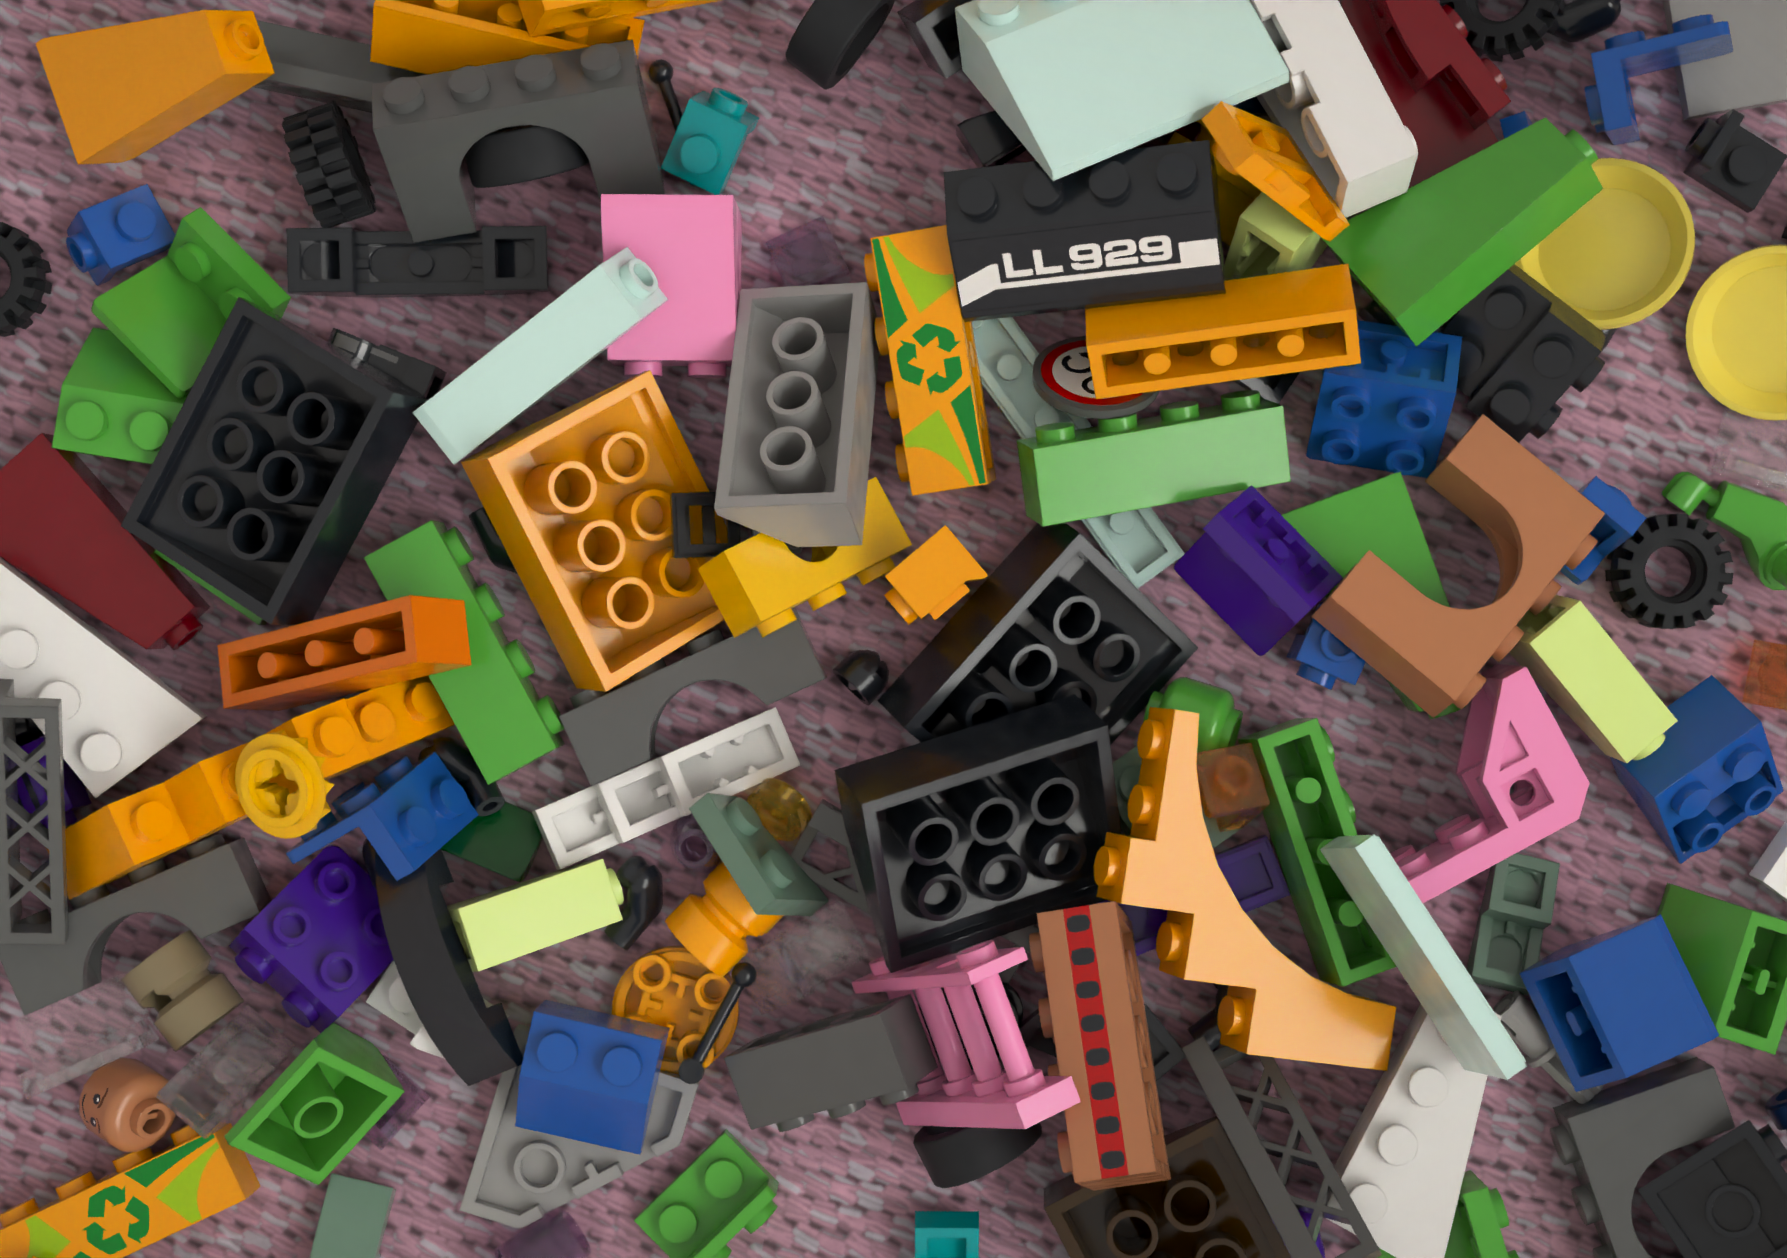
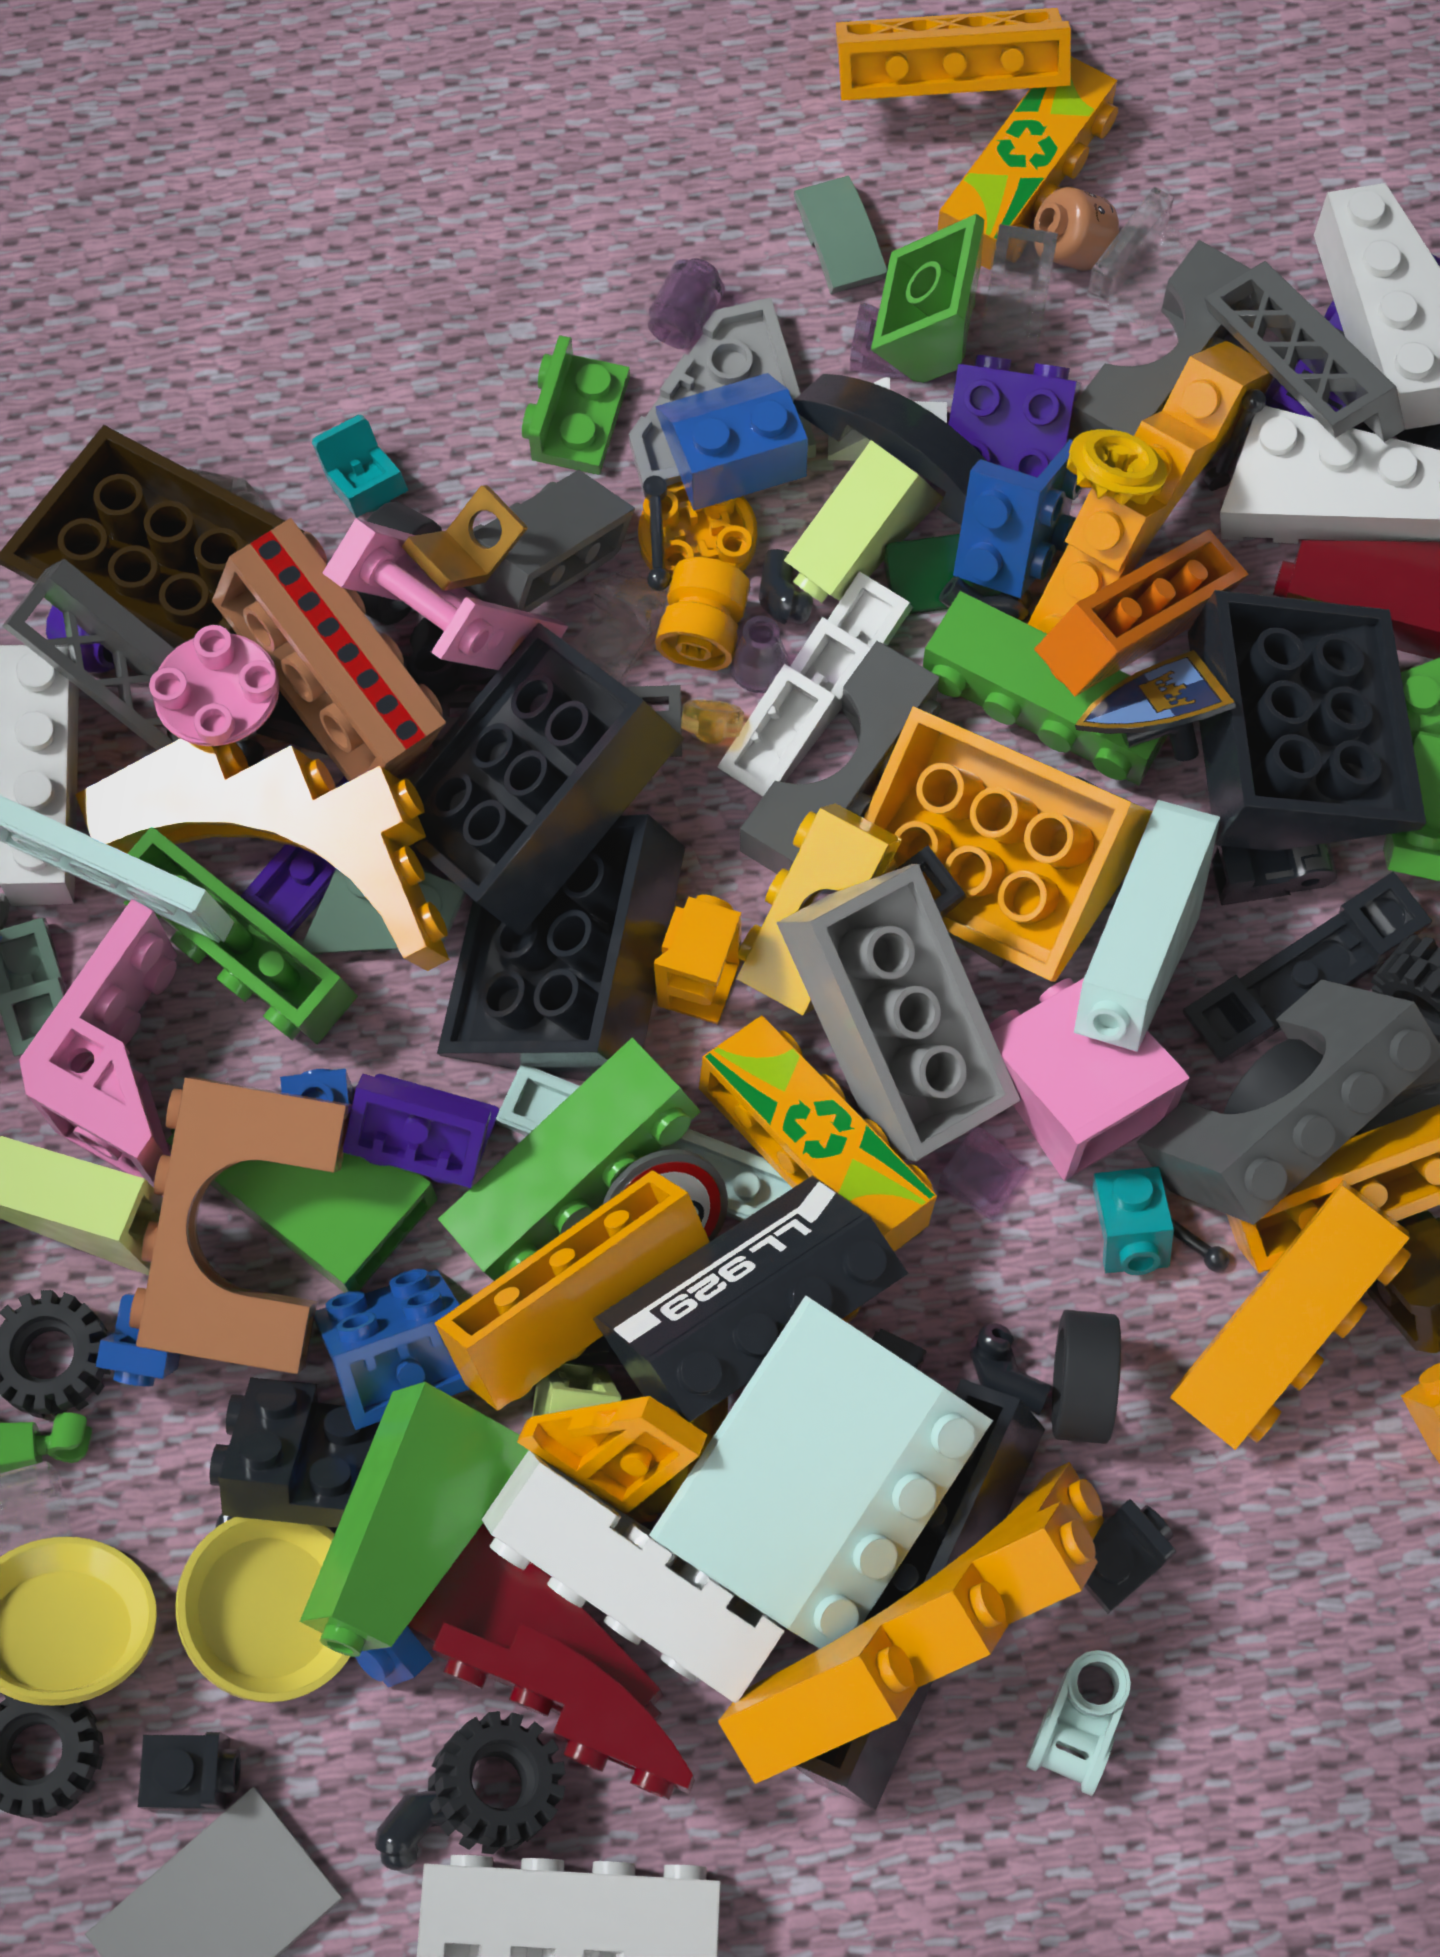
camera: 155 degrees right, 20 degrees down
(102, 795) = (1253, 402): none -> black hinge
(182, 990) = (1091, 326): dark tan wheel -> none
(388, 553) = (1160, 703): none -> shield
(755, 858) = (705, 660): sand green wing -> none
(865, 673) = (710, 863): black hinge -> none
(901, 82) = (998, 1368): none -> black arm
(935, 1072) = (455, 556): none -> pearl gold bracket
(1217, 717) = (400, 990): bright green head -> none
(1218, 1081) = (215, 688): none -> bright pink dish
(1231, 786) = (343, 930): clear orange bracket -> none
(1632, 55) = (341, 1752): blue bracket -> none

